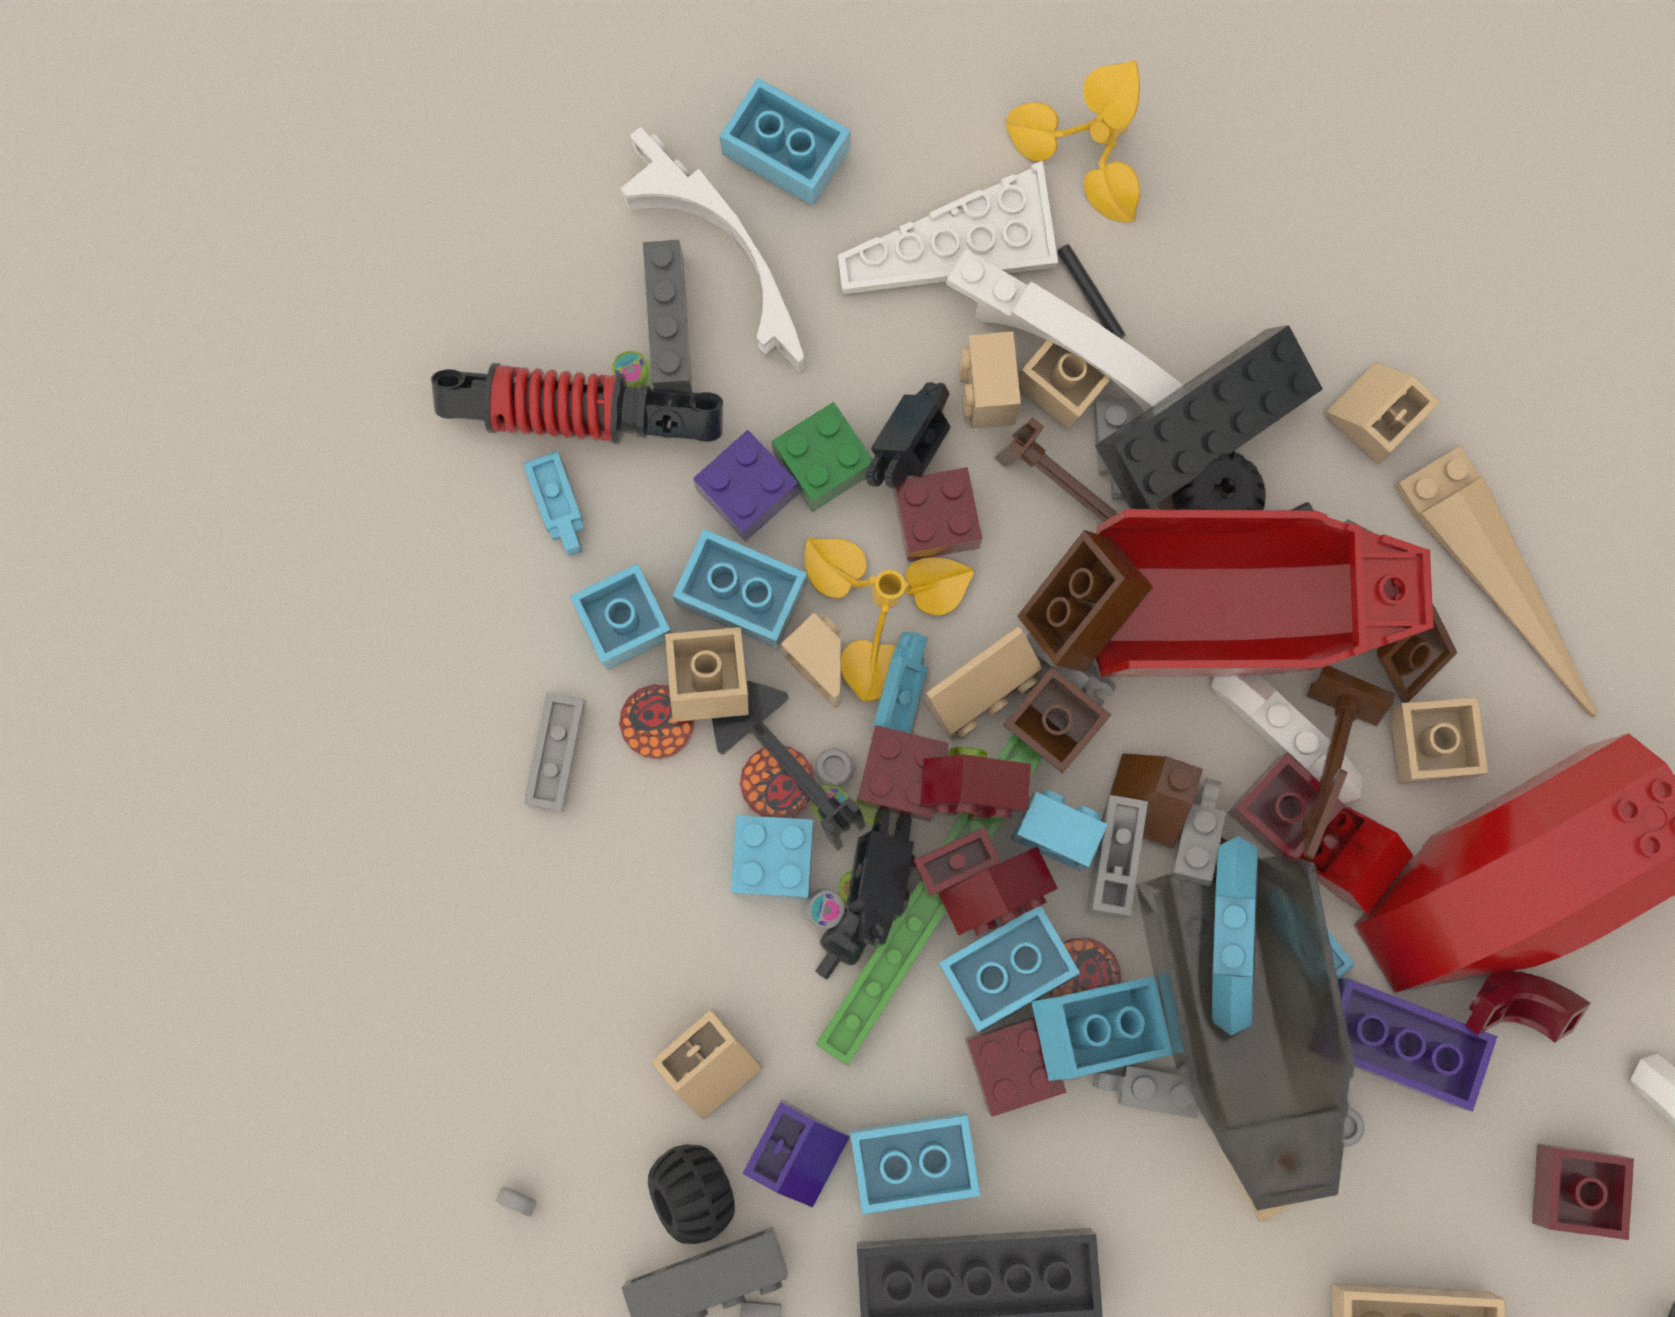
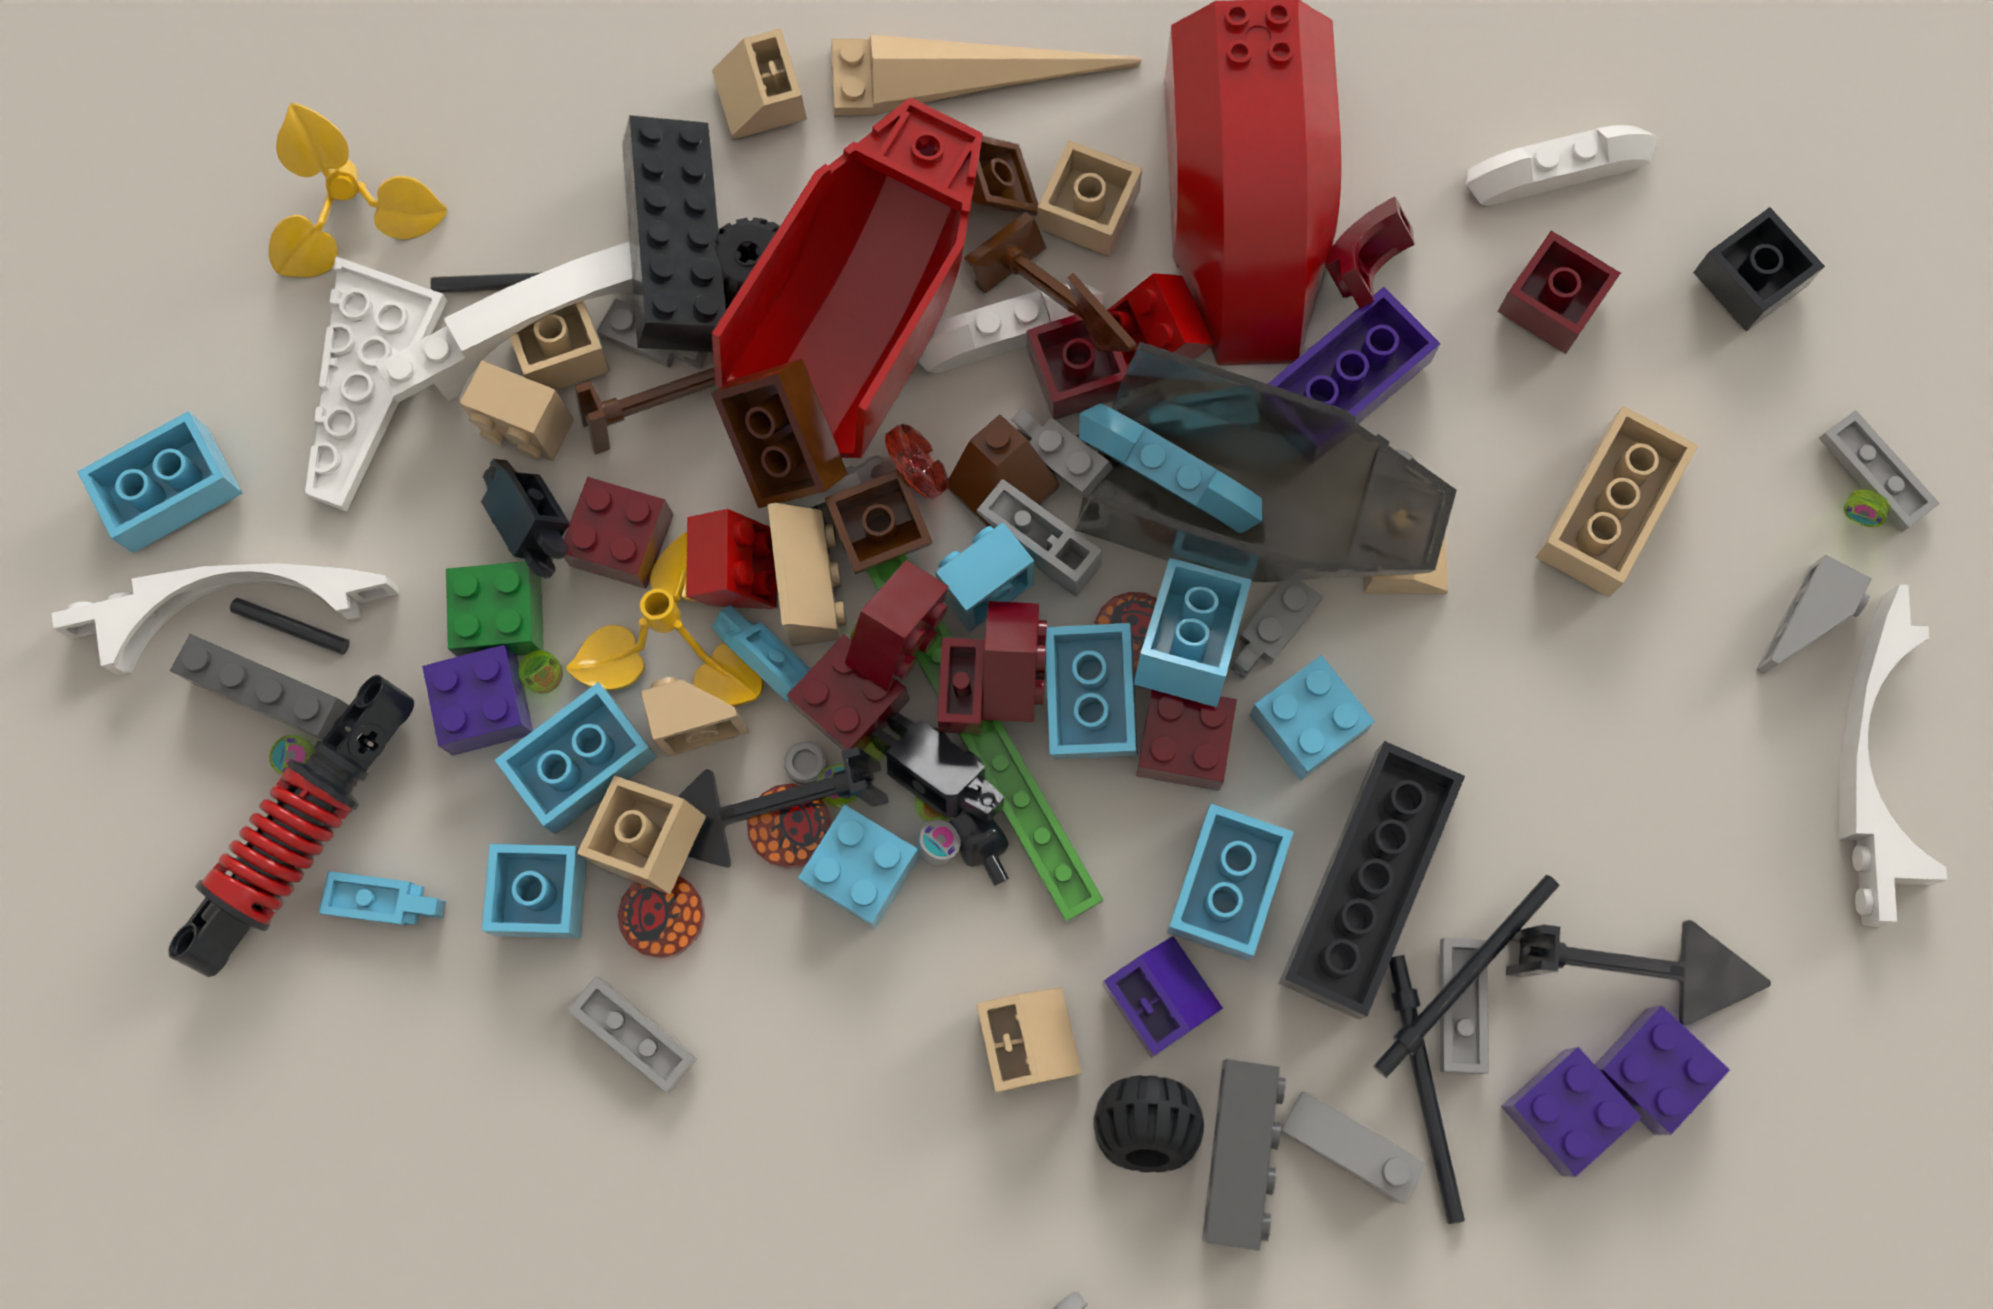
camera: 60 degrees left, 5 degrees down
(729, 306) = (289, 626): none -> black bar
(796, 519) = (540, 672): none -> clear neon green tile
(961, 618) = (730, 561): none -> red slope
(1087, 1161) = (1311, 717): none -> medium azure brick
(1124, 720) = (912, 459): none -> clear red tile

